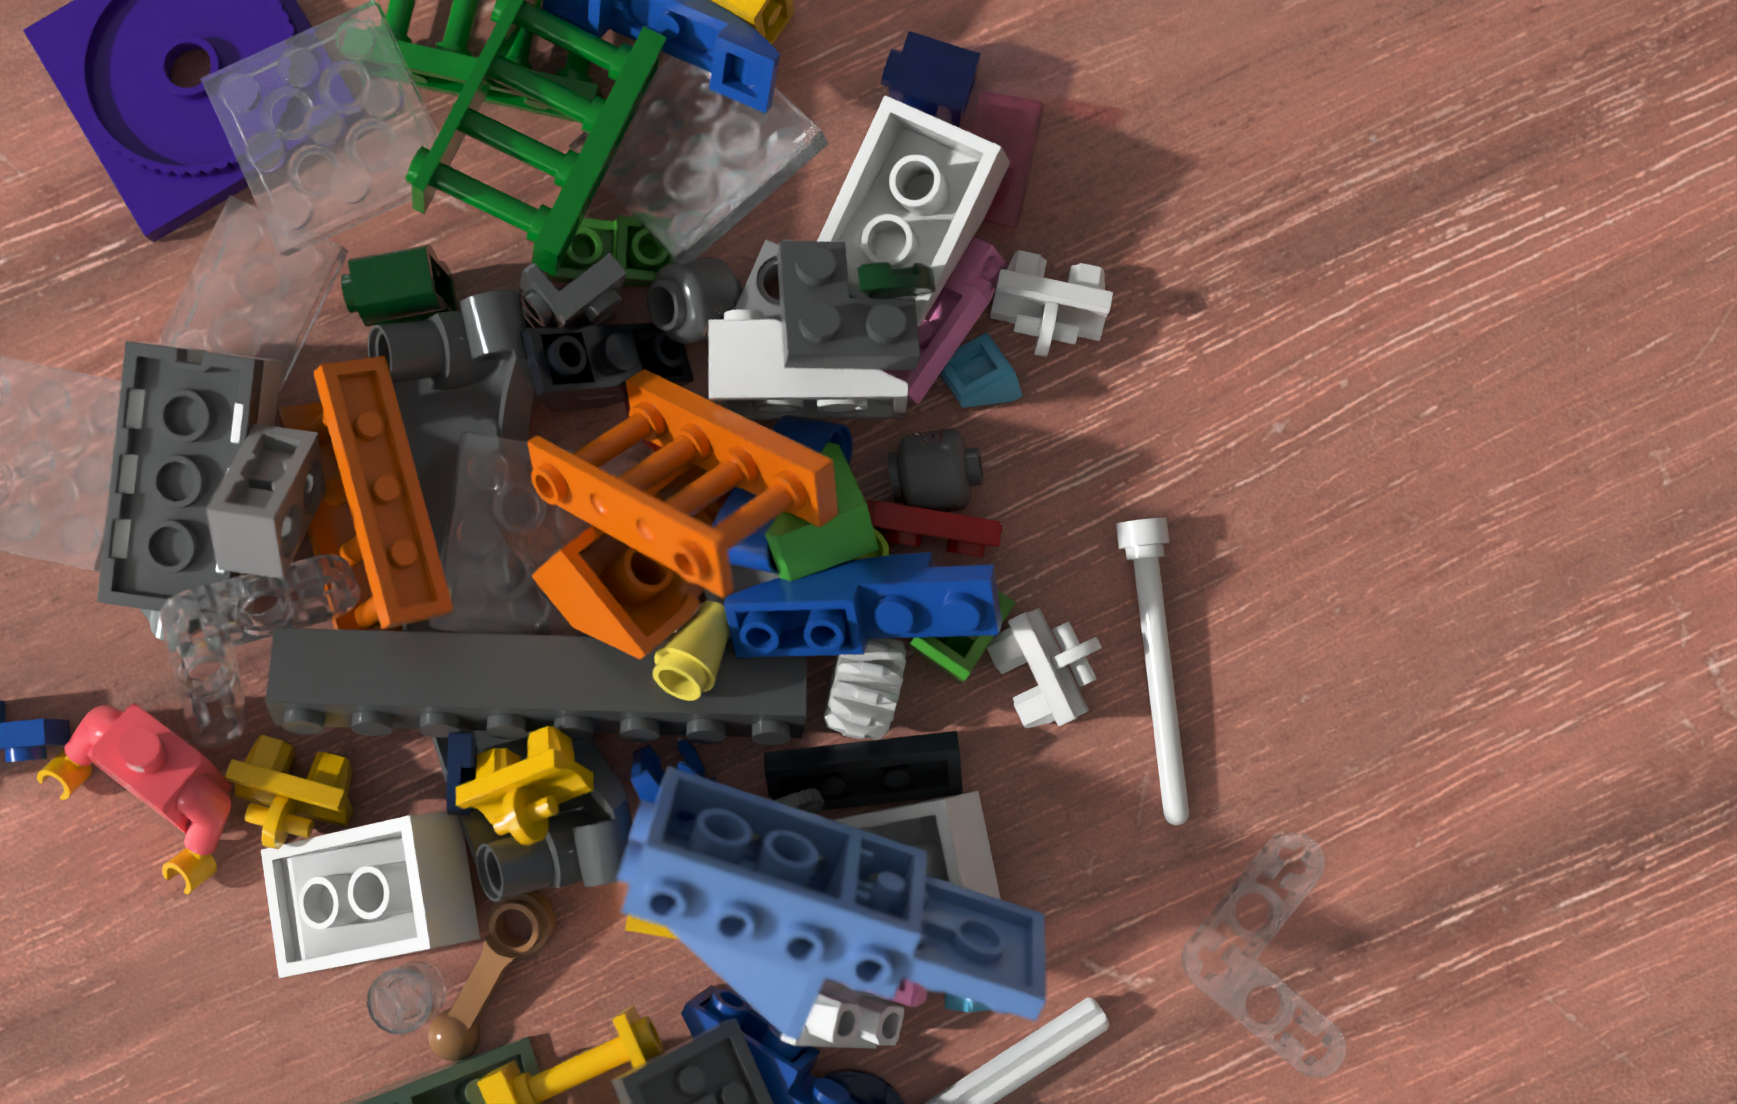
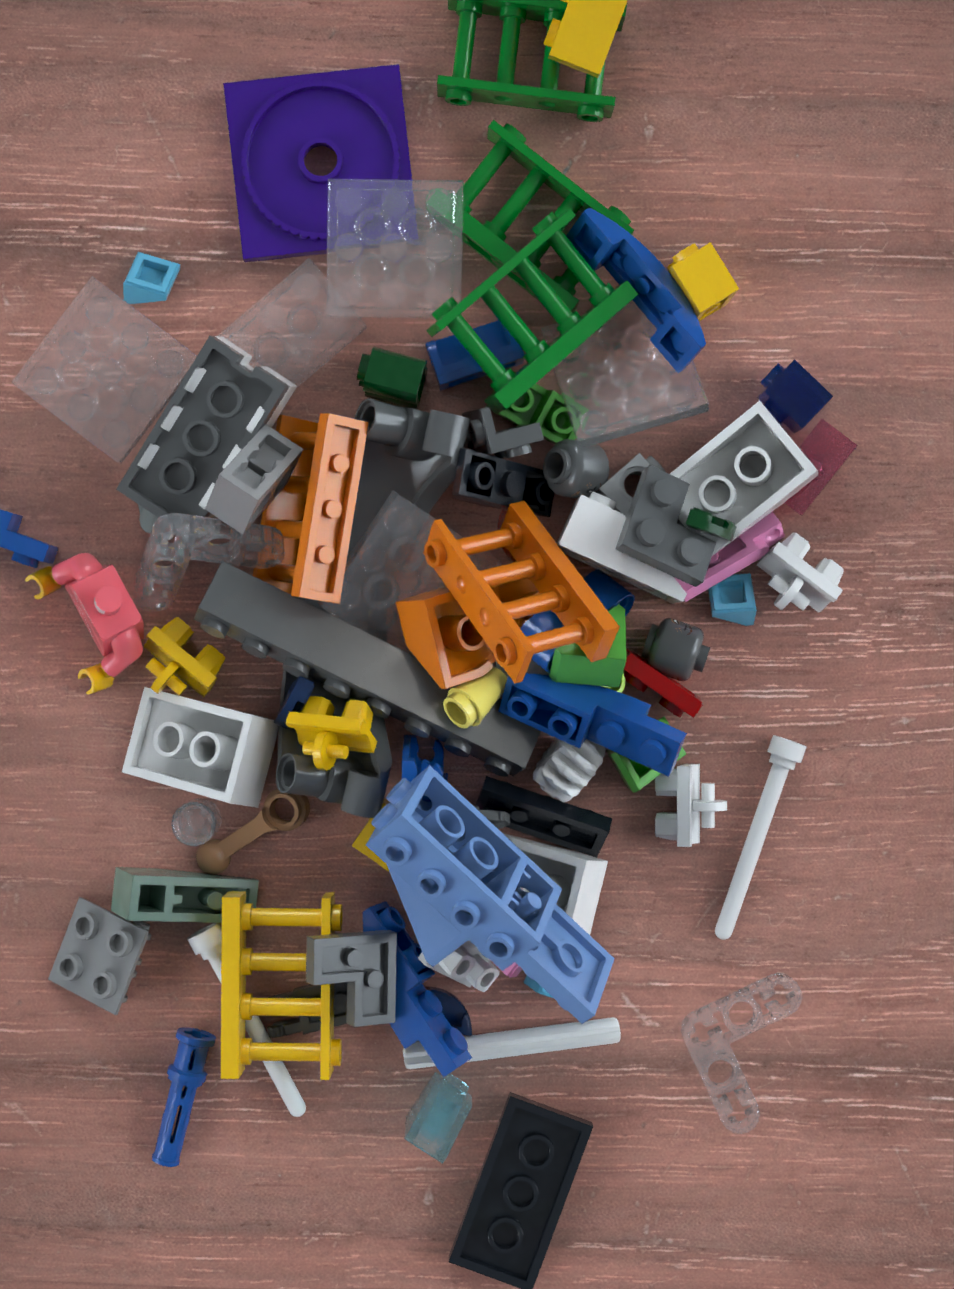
camera: 30 degrees right, 5 degrees up
(35, 319) = (149, 279): none -> medium azure slope
(485, 243) = (456, 366): none -> blue hinge

